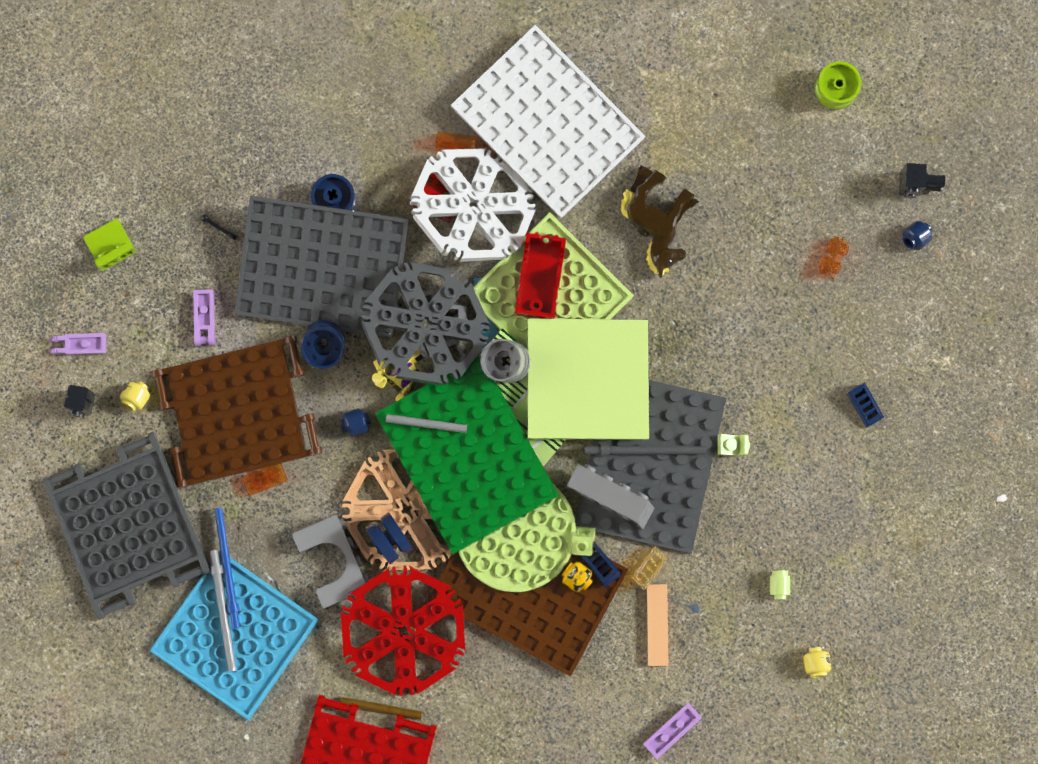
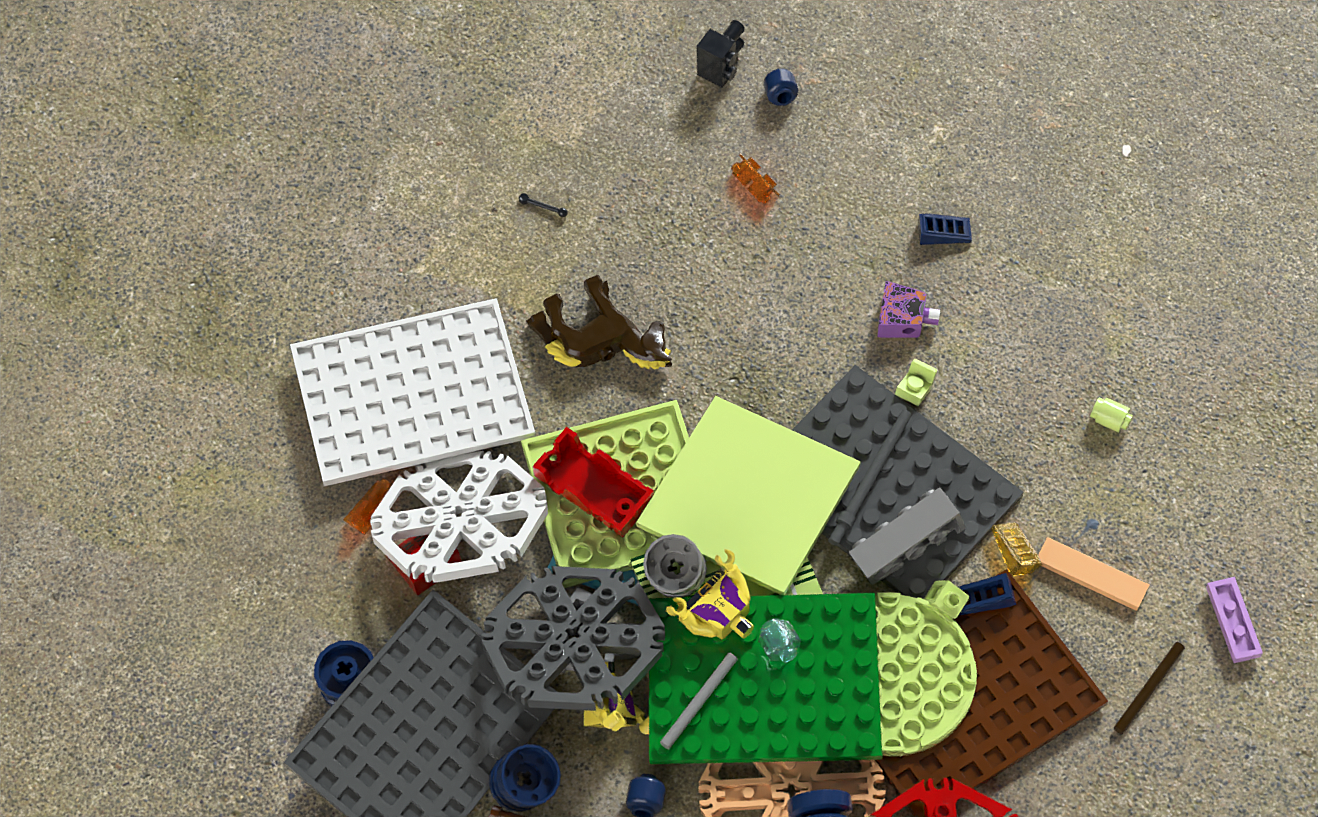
camera: 55 degrees left, 20 degrees down
(489, 452) = (779, 640): none -> clear light blue head
(492, 402) = (718, 604): none -> light yellow torso
(577, 577) = (987, 627): yellow head -> none
(597, 697) = (1149, 687): none -> dark brown bar
(734, 110) = (524, 199): none -> black hinge
(783, 410) = (904, 312): none -> torso
(817, 662) = (1227, 419): light yellow head -> none
(835, 75) = (564, 80): lime wheel -> none

